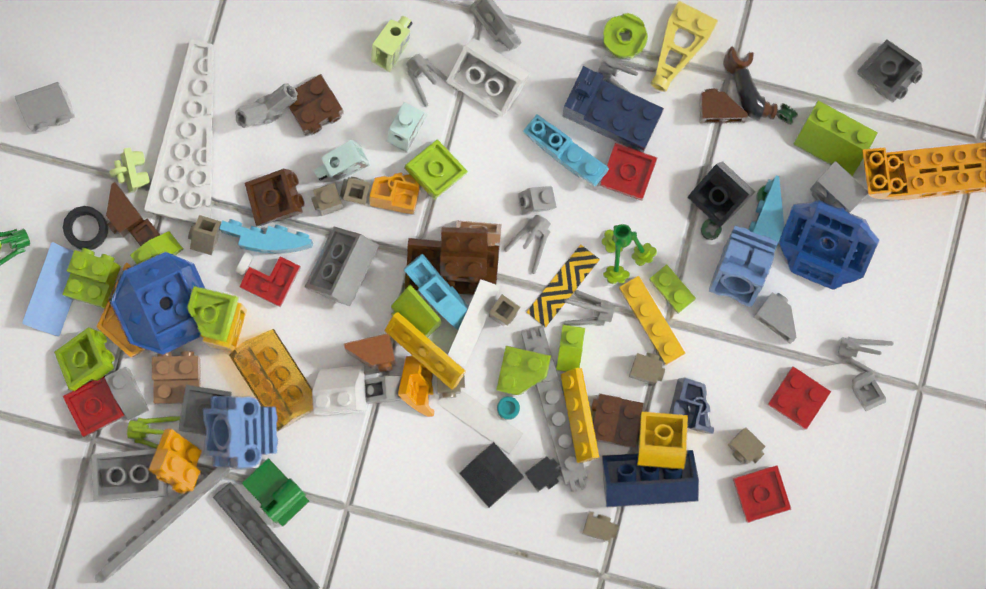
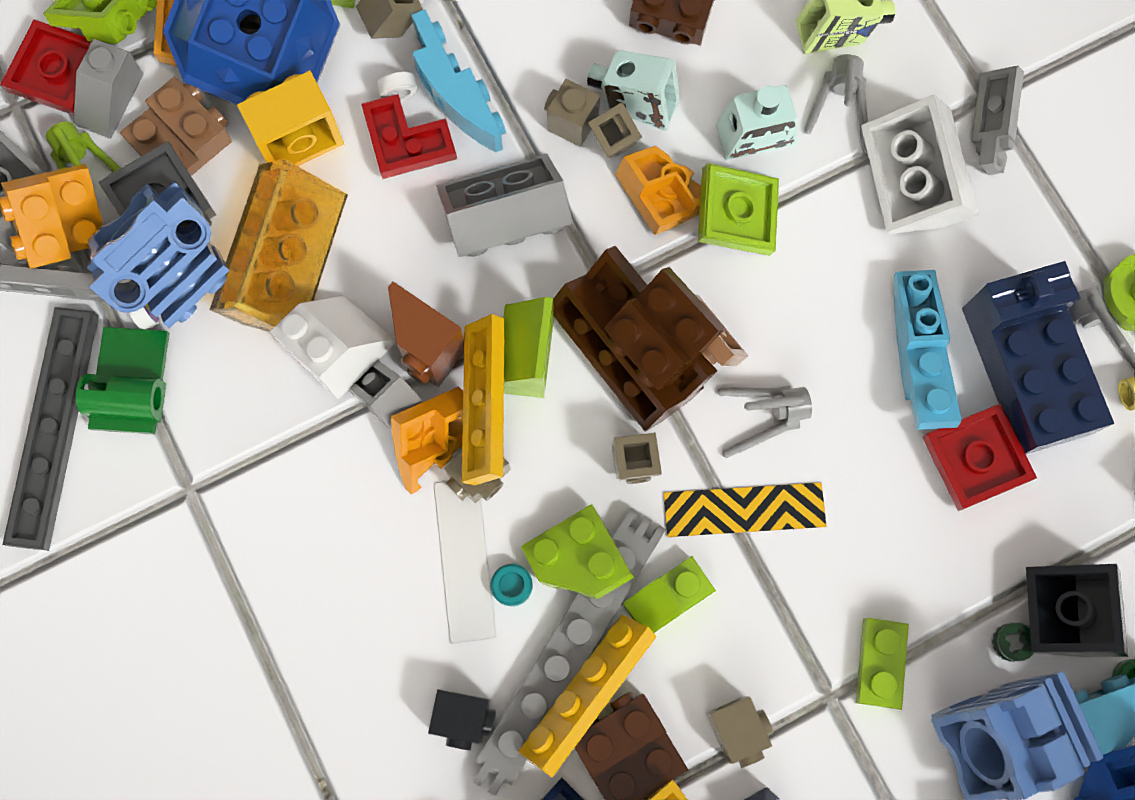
camera: 50 degrees right, 5 degrees down
(212, 312) = (282, 81): lime plate -> none
(274, 197) = (516, 49): reddish brown plate -> none
(437, 291) = (577, 357): medium azure slope -> none
(473, 322) = (582, 431): white sticker -> none
(491, 474) = (398, 645): black slope -> none
(537, 199) = (825, 371): light grey bracket -> none
(602, 310) = (762, 592): light grey plant -> none
(618, 239) = (871, 525): plant -> none
(652, 320) = (812, 676): yellow plate -> none

